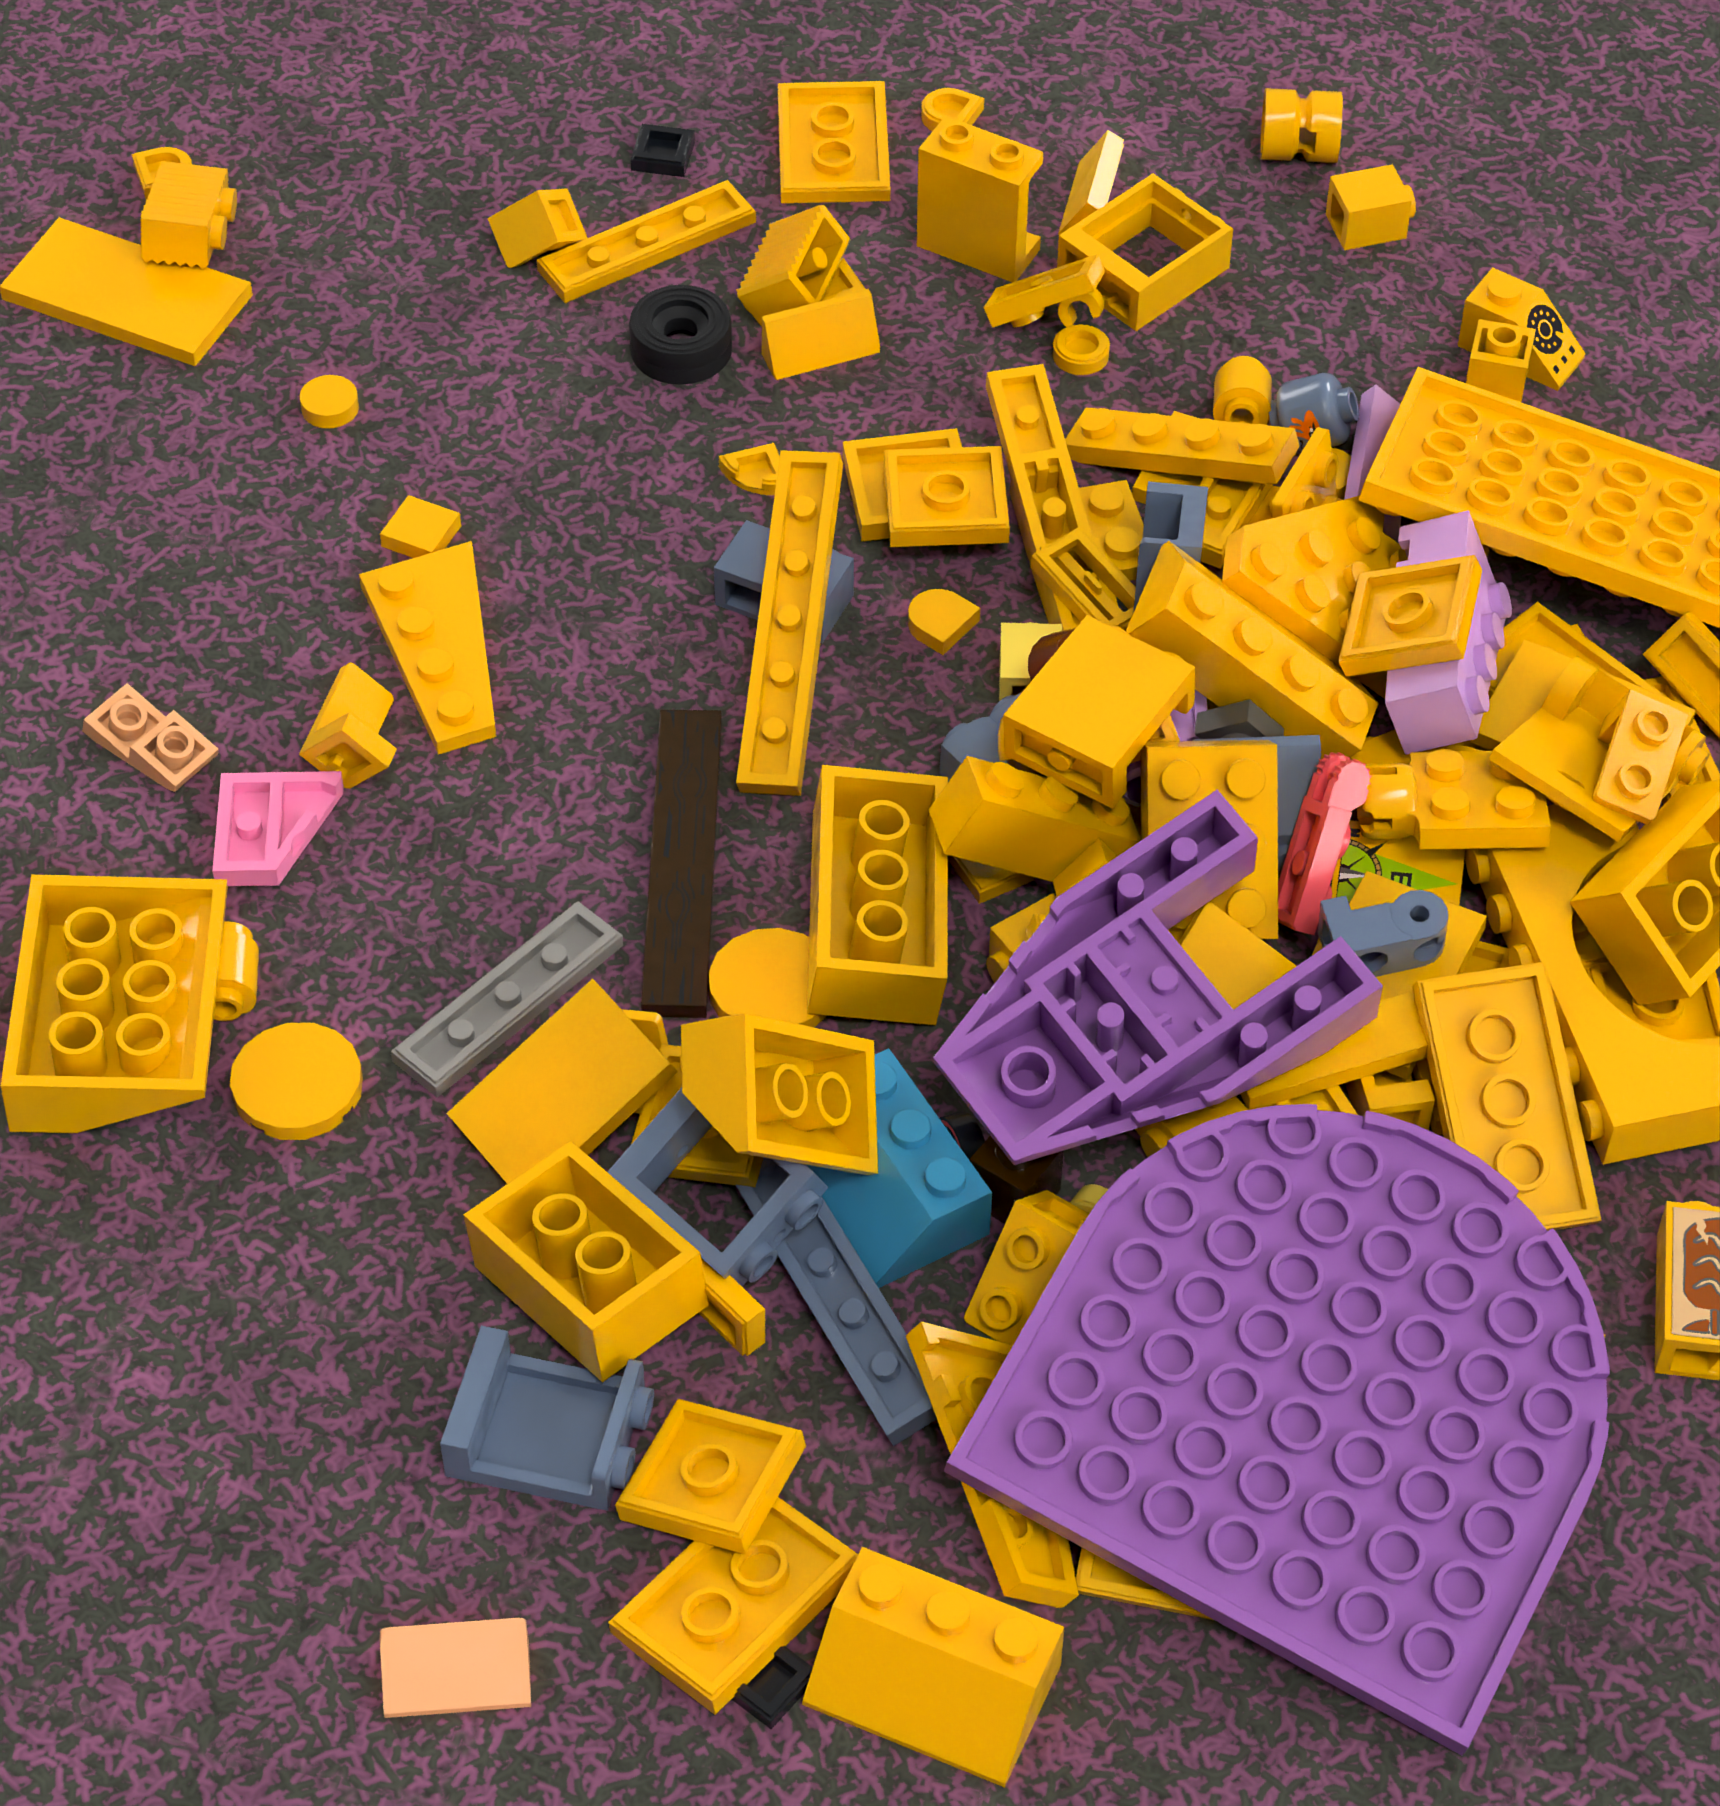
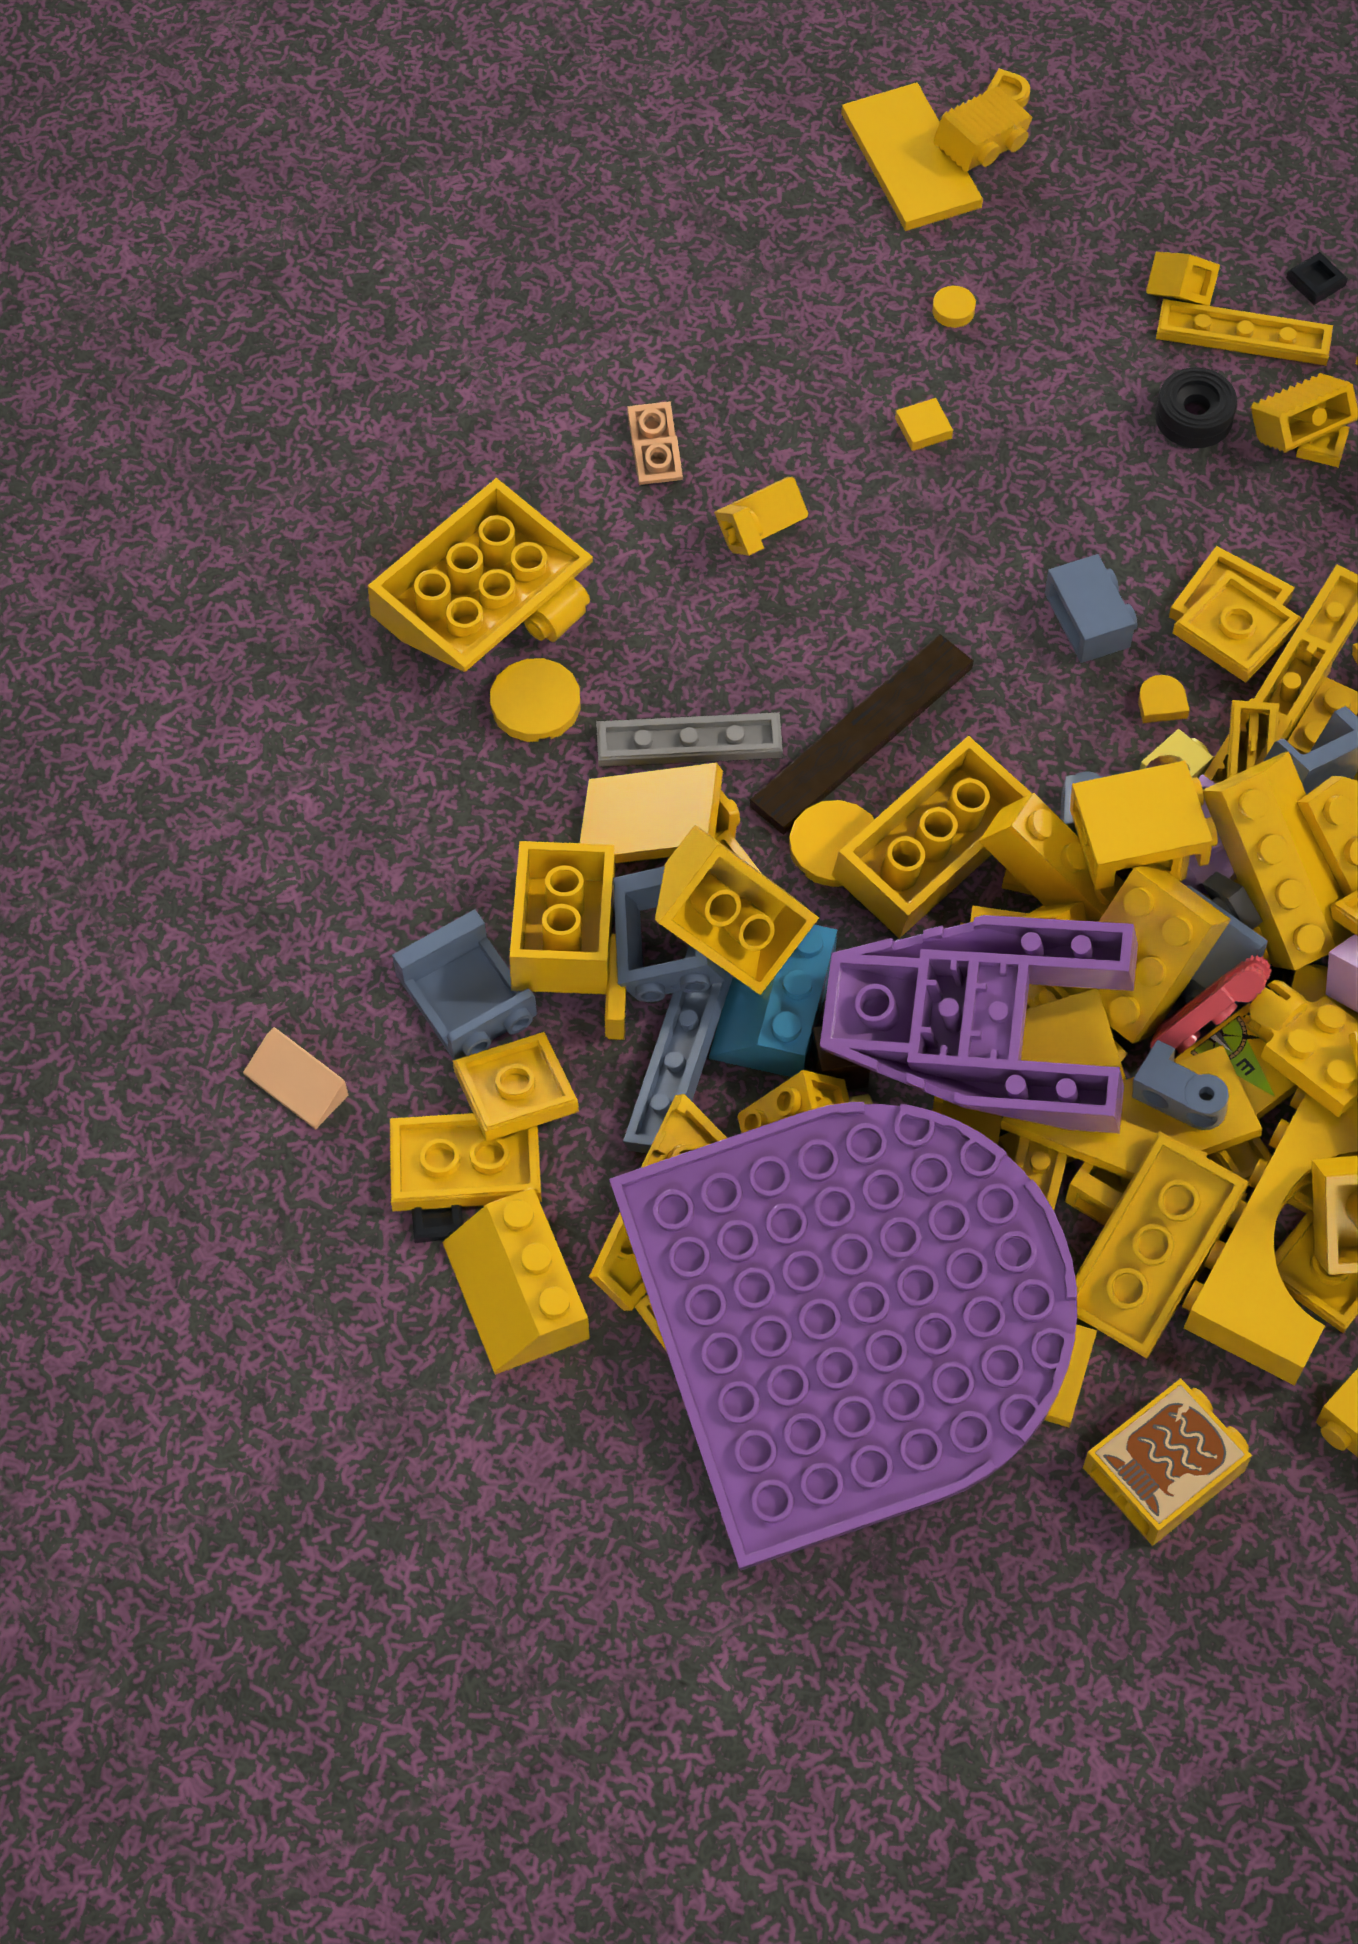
camera: 45 degrees right, 10 degrees up
(269, 822) = (664, 540): bright pink wing -> none
(437, 640) = (865, 498): yellow wing -> none
(753, 468) = (1155, 527): yellow tile -> none
(790, 623) = (1053, 634): yellow plate -> none
(820, 334) = (1278, 467): yellow slope -> none

